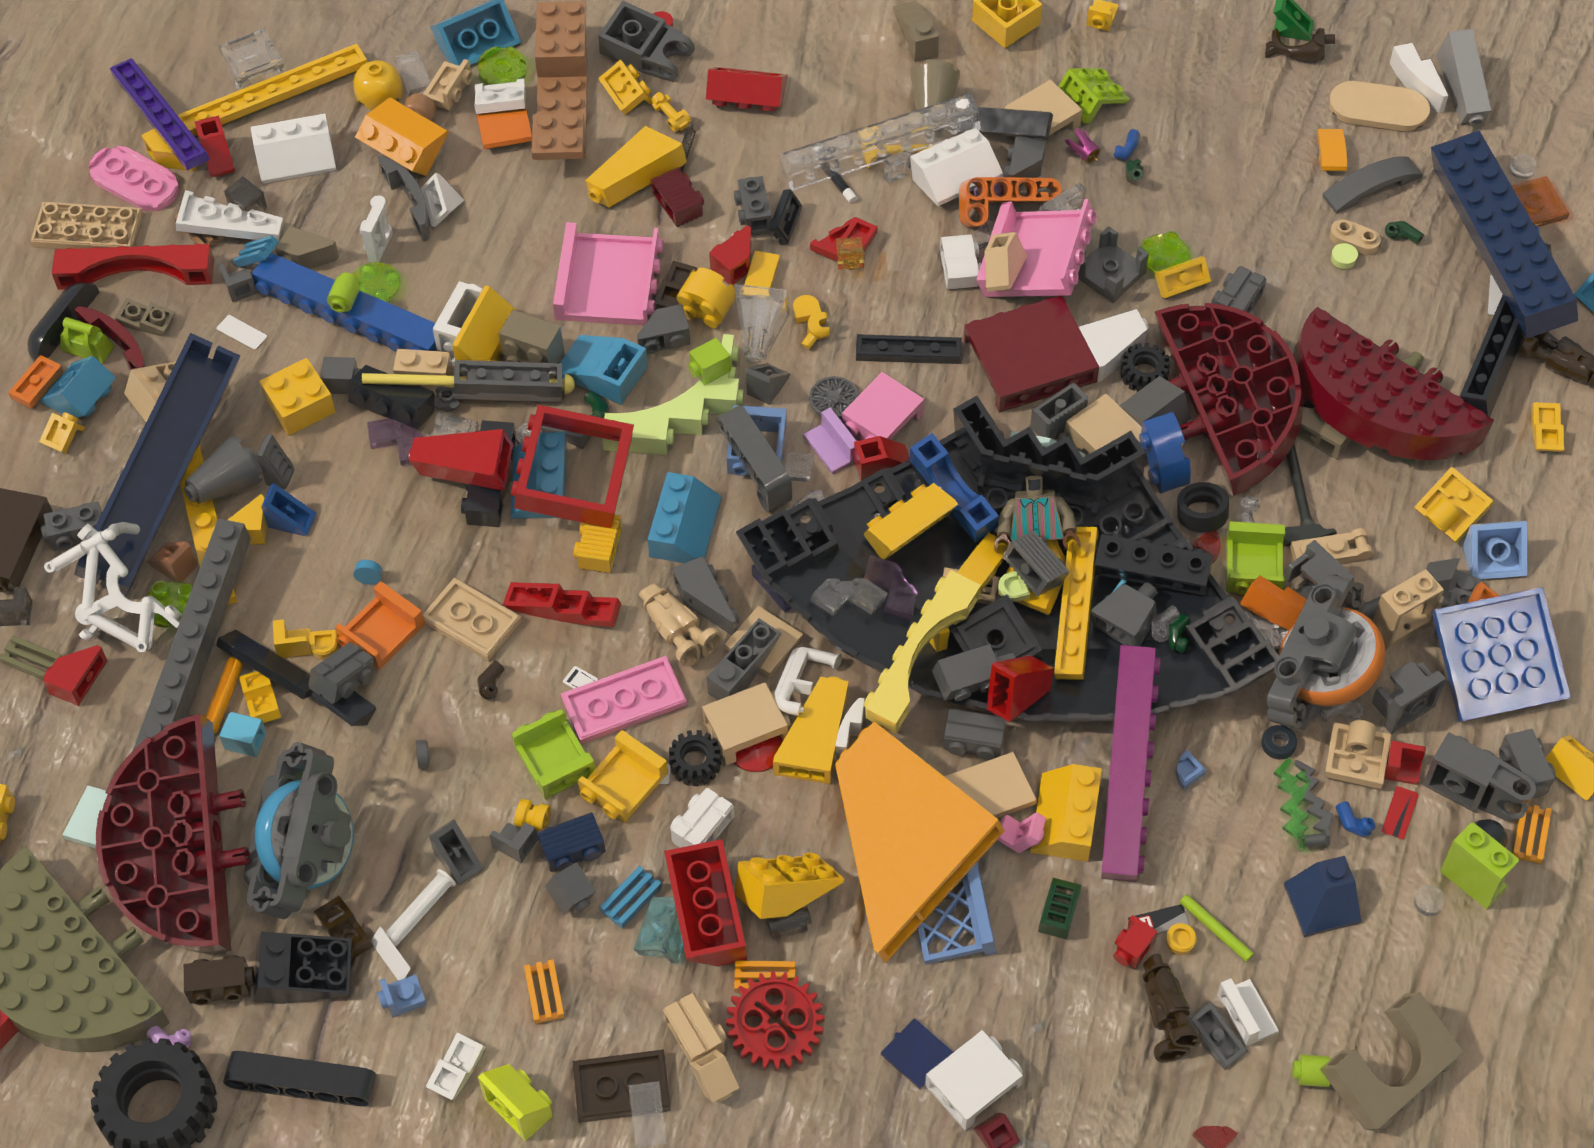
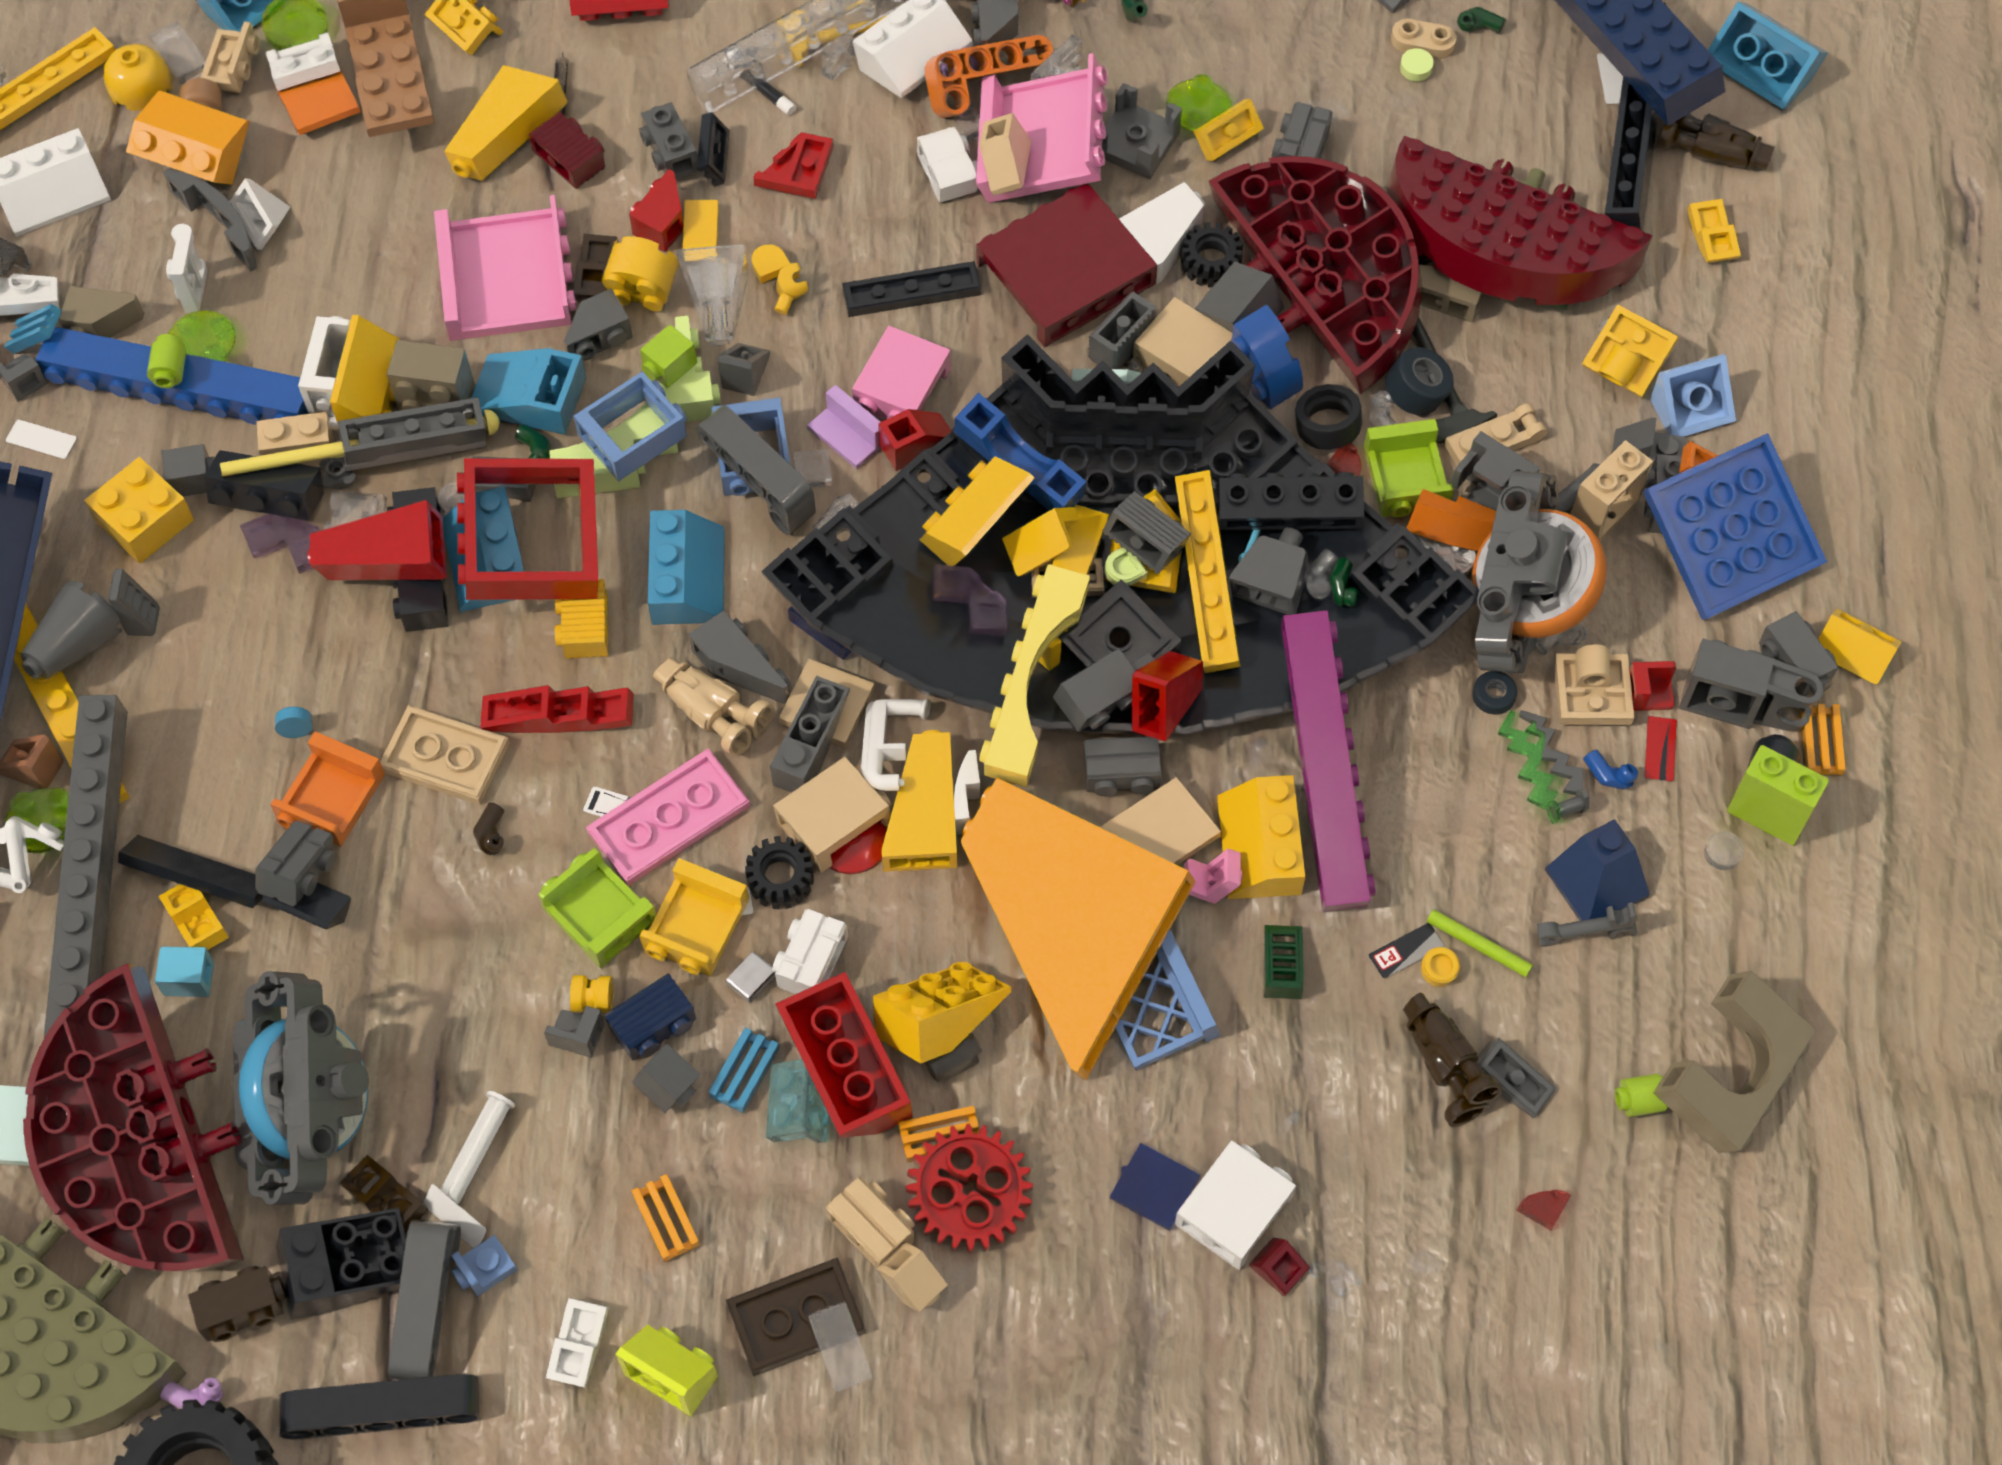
camera: 15 degrees left, 5 degrees up
(223, 692) = (143, 921): light orange axle -> none
(254, 520) = (126, 682): yellow slope -> none
(286, 512) = (165, 666): blue slope -> none
(291, 642) = (216, 835): yellow panel -> none
(323, 643) = (259, 828): yellow tile -> none
(350, 1006) = (422, 1298): none -> dark grey beam
(422, 754) = (427, 945): dark grey tile -> none
(454, 852) = (504, 1064): dark grey slope -> none
(653, 830) = (750, 977): none -> flat silver piece
(659, 389) = (616, 403): none -> medium blue window
(677, 120) = (540, 50): yellow bar -> none
(833, 393) = (831, 366): dark grey wheel -> none
(850, 253) = (808, 180): clear yellow bracket -> none
(860, 591) = (934, 614): clear tile -> none
(953, 552) = (1040, 540): none -> yellow panel
(1036, 511) = (1130, 466): dark tan torso -> none
(1134, 942) = (1386, 985): red brick -> none
(1188, 770) = (1394, 752): medium blue tile -> none
(1246, 1011) = (1542, 1039): white panel -> none
(1281, 494) = (1419, 381): none -> black wheel
(1325, 933) = (1615, 923): none -> dark grey bar
(1416, 695) = (1643, 600): dark grey panel -> none

